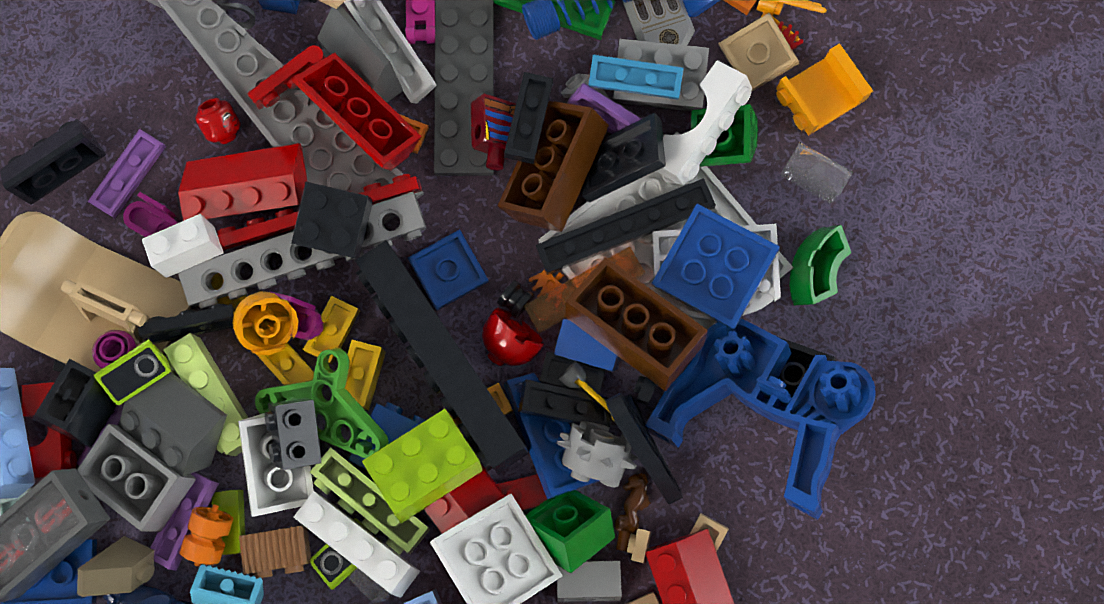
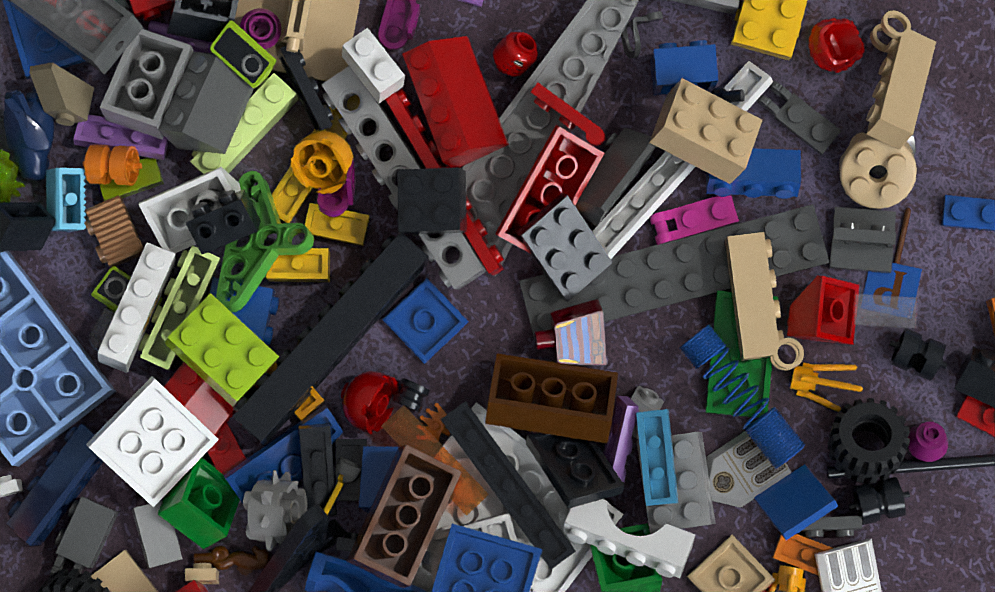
camera: 75 degrees right, 5 degrees up
(412, 113) = (564, 247): none -> plate
(528, 118) = (590, 361): black plate -> none

